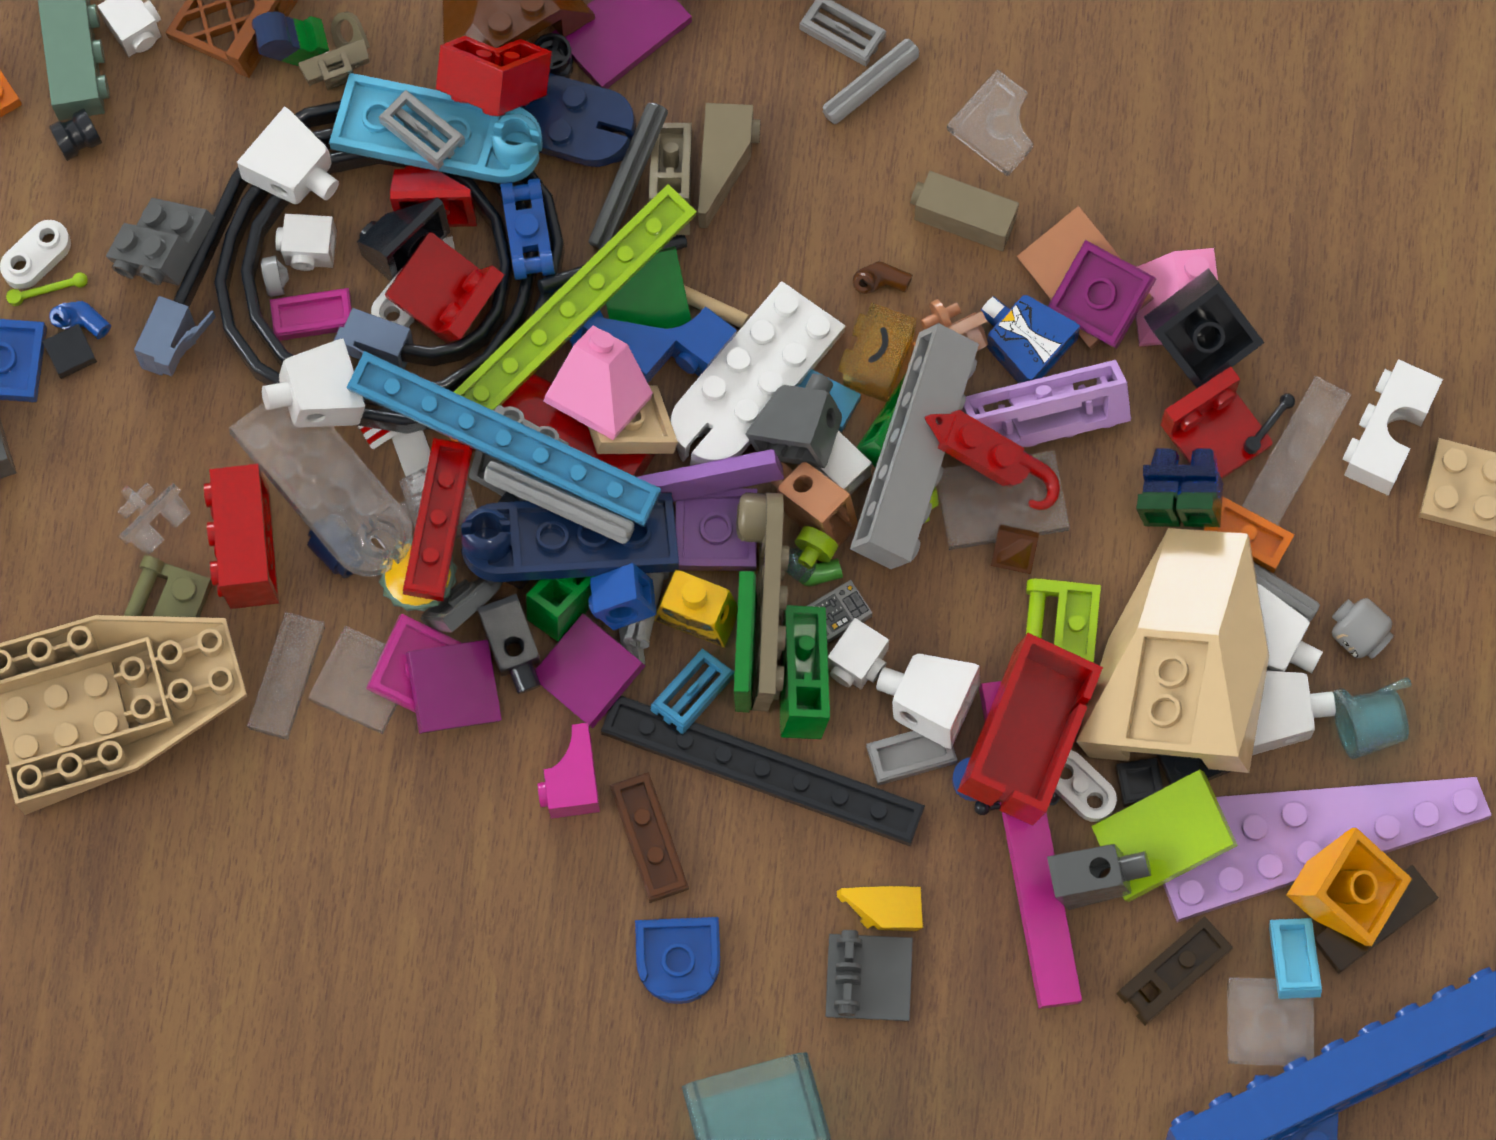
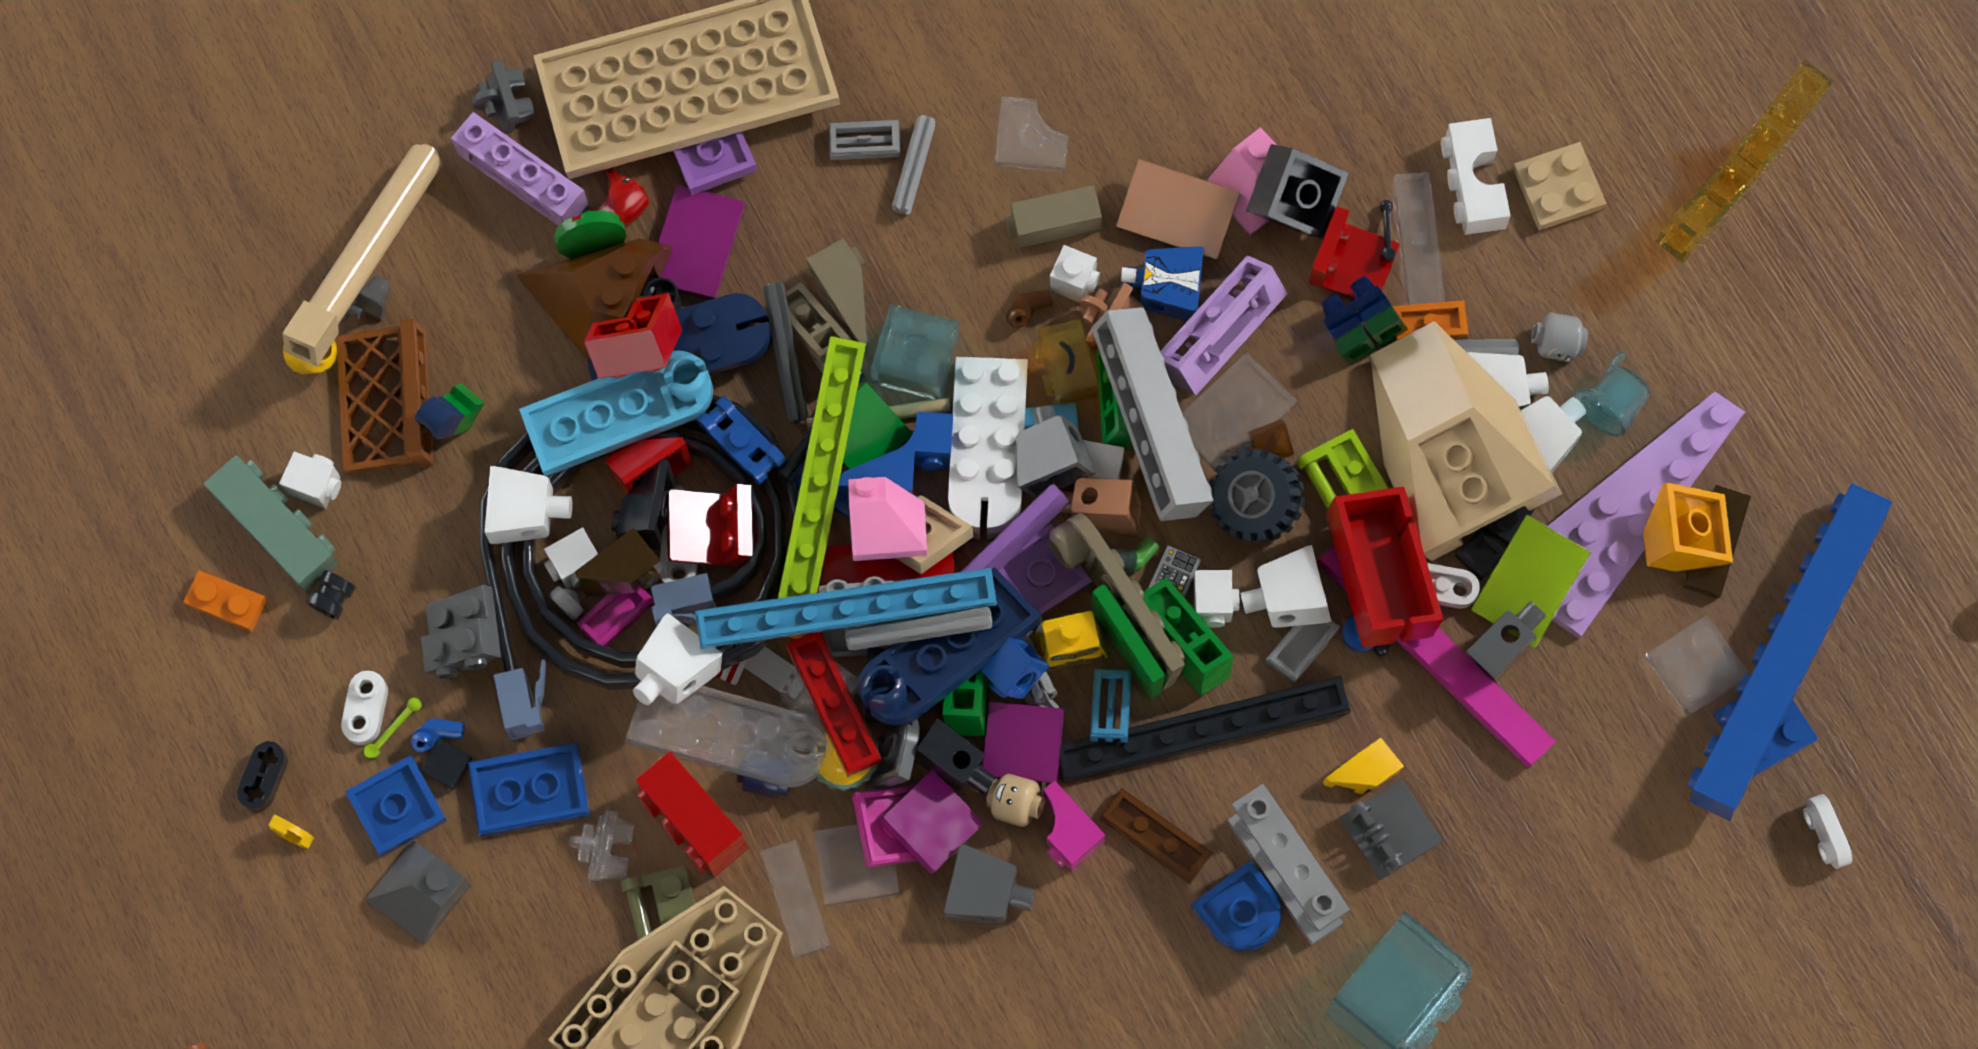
camera: 35 degrees left, 0 degrees up
(125, 421) = (528, 789): none -> blue tile
(337, 64) = (502, 398): dark tan piece -> none
(338, 272) = (620, 568): none -> dark brown slope
(446, 150) = (639, 420): light grey tile -> none
(457, 779) = (984, 888): none -> dark grey torso
(543, 718) = (1015, 800): none -> tan head
(742, 941) = (1287, 864): none -> light grey fence
(746, 252) = (915, 352): none -> clear light blue brick
(815, 546) = (1126, 537): lime tile -> none
(943, 273) = (1074, 274): none -> white brick
(961, 586) = (1256, 496): none -> black wheel
(991, 454) = (1210, 383): red plate -> none
(1102, 293) = (1201, 213): magenta tile -> none
(1176, 969) = (1605, 673): dark brown plate -> none
(1295, 958) = (1684, 607): medium azure tile -> none

